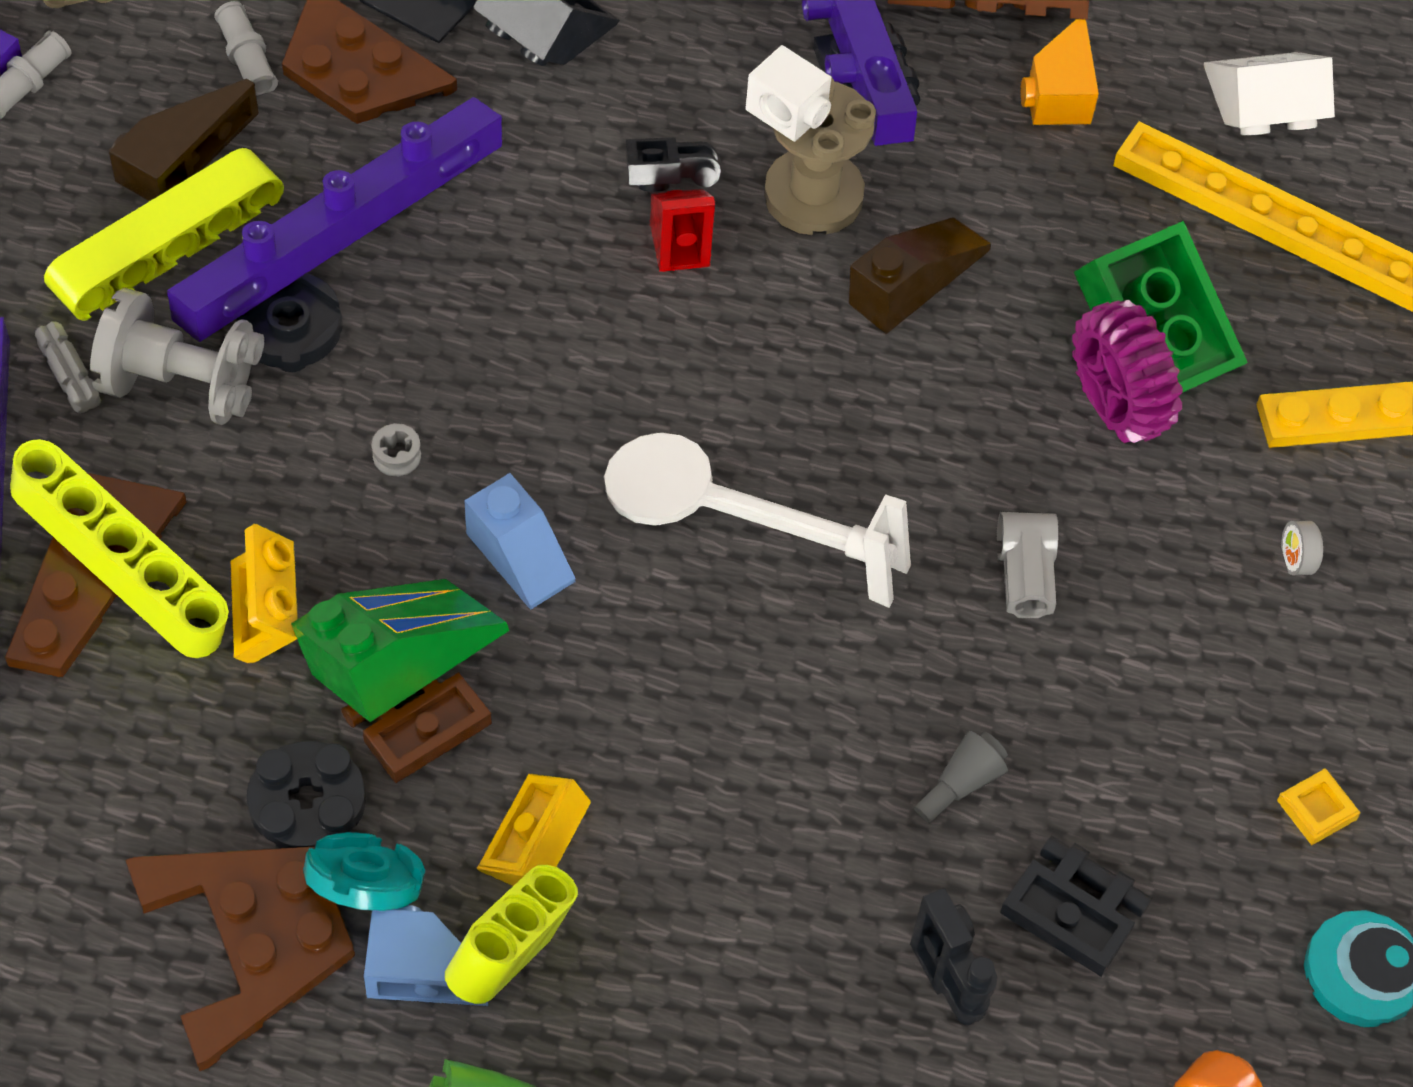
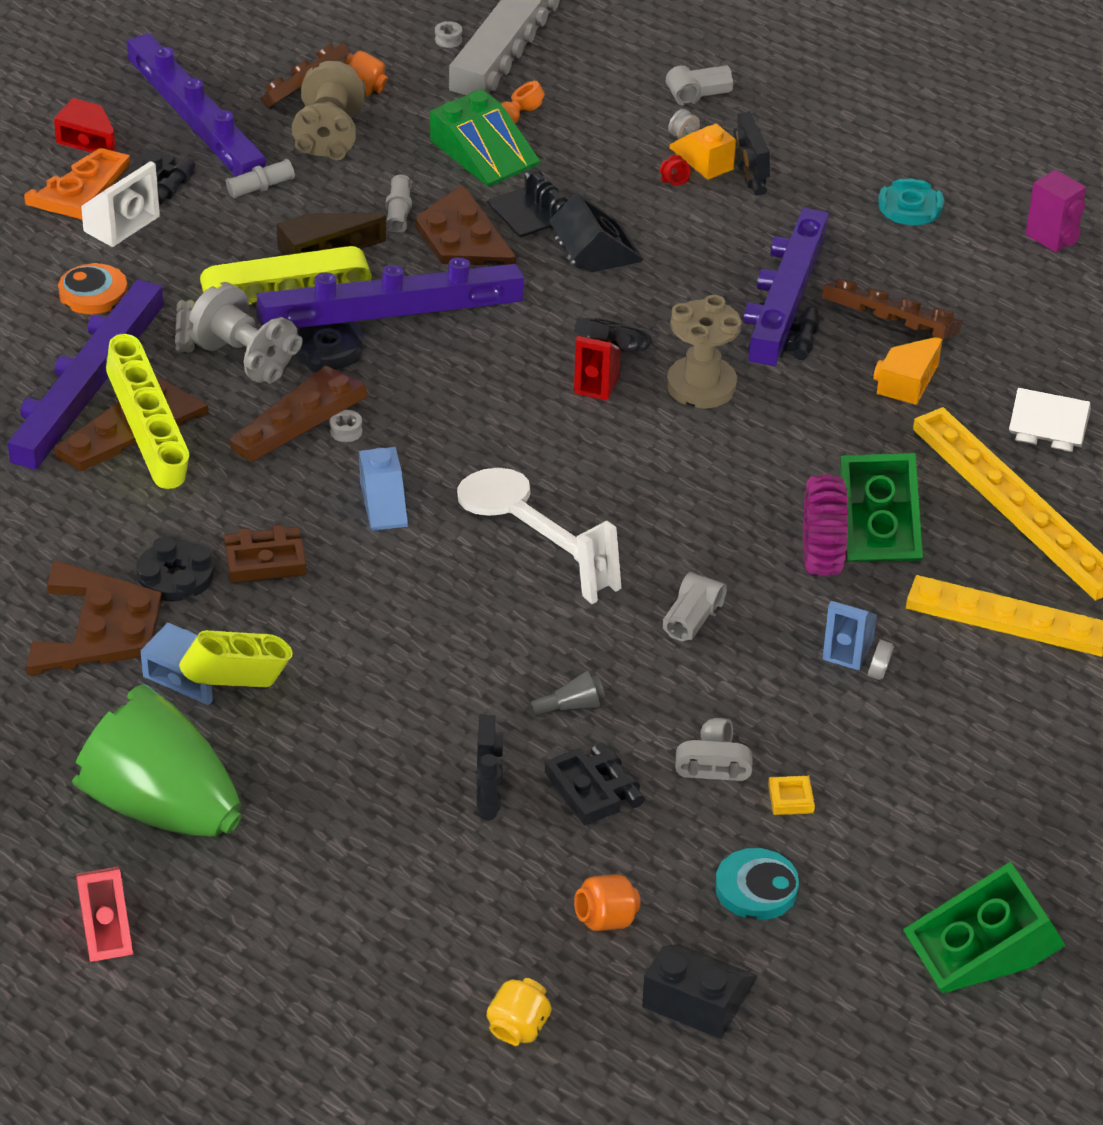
camera: 30 degrees right, 15 degrees down
(263, 595) = (215, 460): yellow bracket -> none
(323, 448) = (299, 411): none -> reddish brown wing
(362, 873) = (177, 607): teal tile -> none
(392, 640) = (264, 505): green slope -> none
(535, 827) = (304, 629): yellow slope -> none
(789, 93) = (683, 293): white brick -> none
(911, 269) = (728, 436): dark brown slope -> none
(1177, 753) = (717, 730): none -> light grey hinge
(1203, 800) = (714, 760): none -> light grey beam
(1251, 527) = (848, 635): none -> medium blue slope

